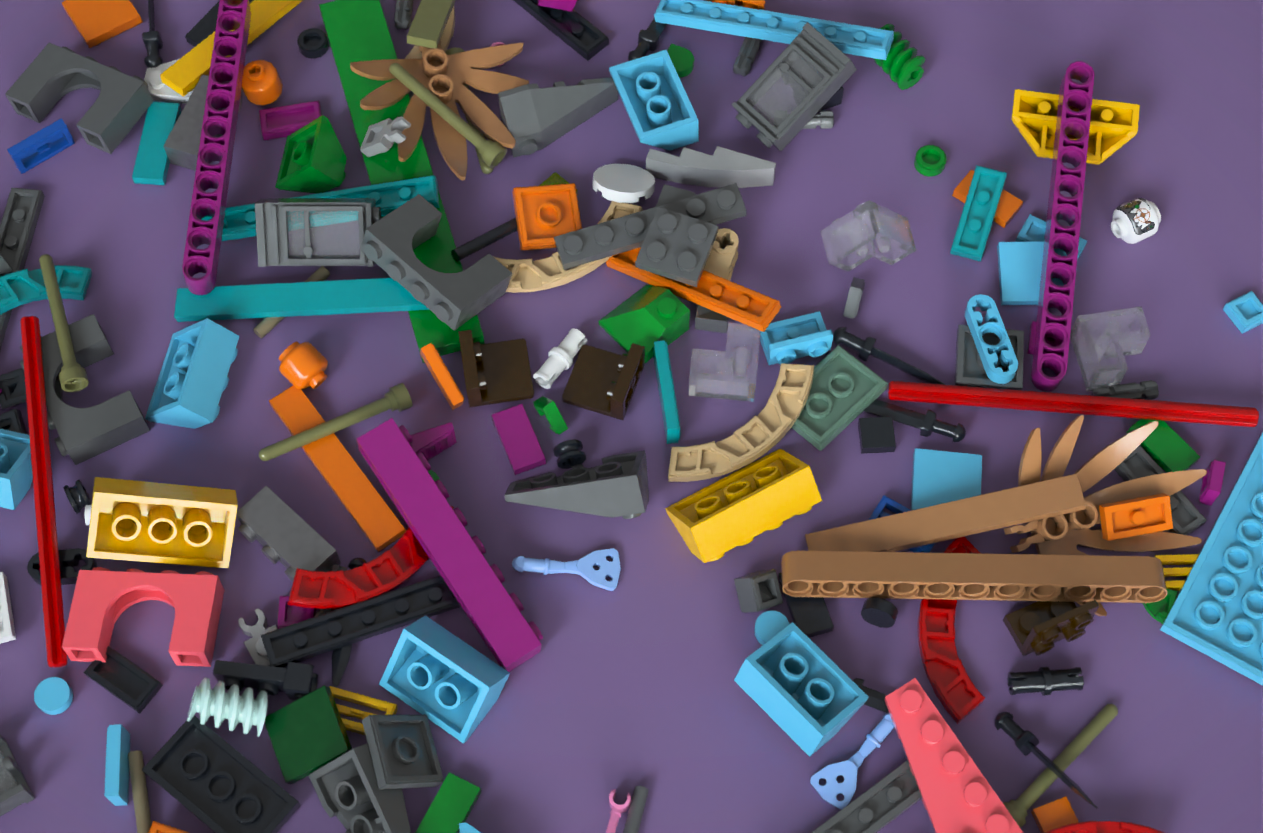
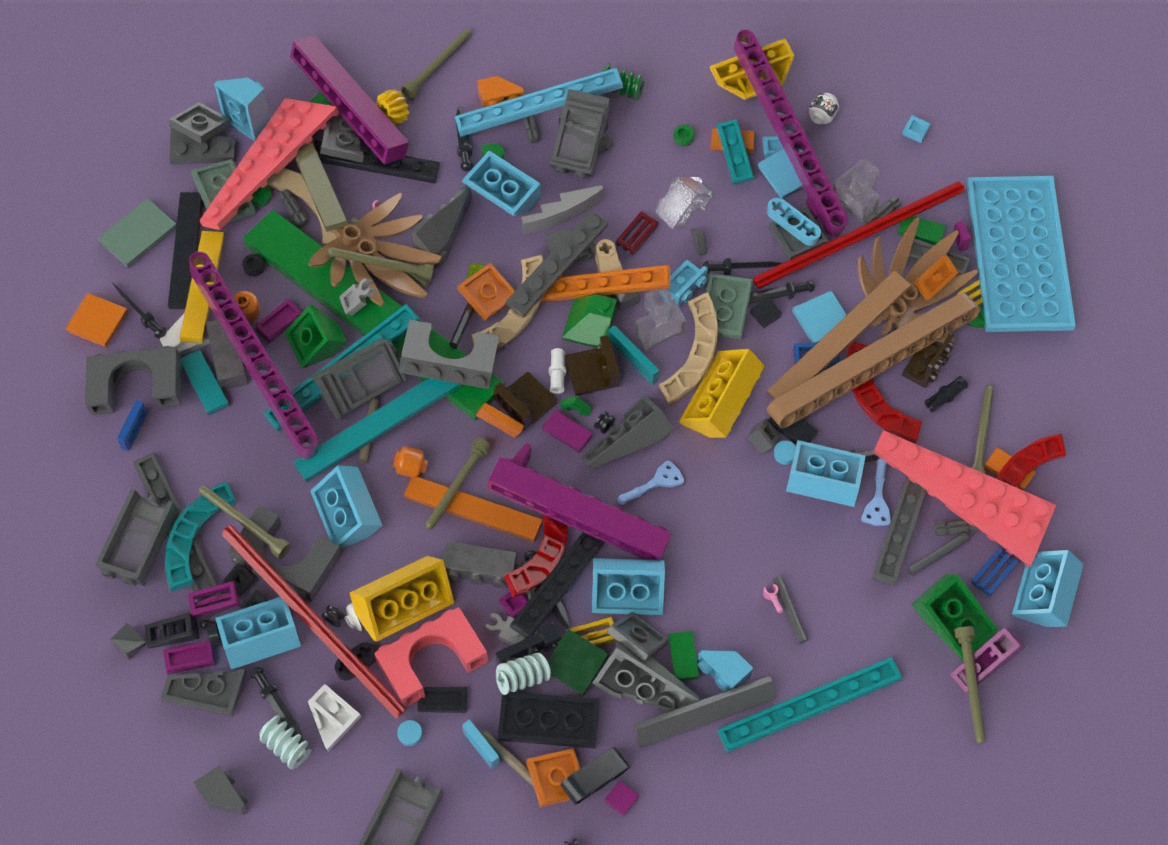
camera: 35 degrees left, 0 degrees up
(623, 182) = (518, 246): white tile -> none
(676, 246) = (585, 266): dark grey plate -> none
(786, 251) = (627, 245): none -> dark red tile
(879, 612) = (836, 409): black tile -> none
(1027, 743) = (958, 432): black sword -> none

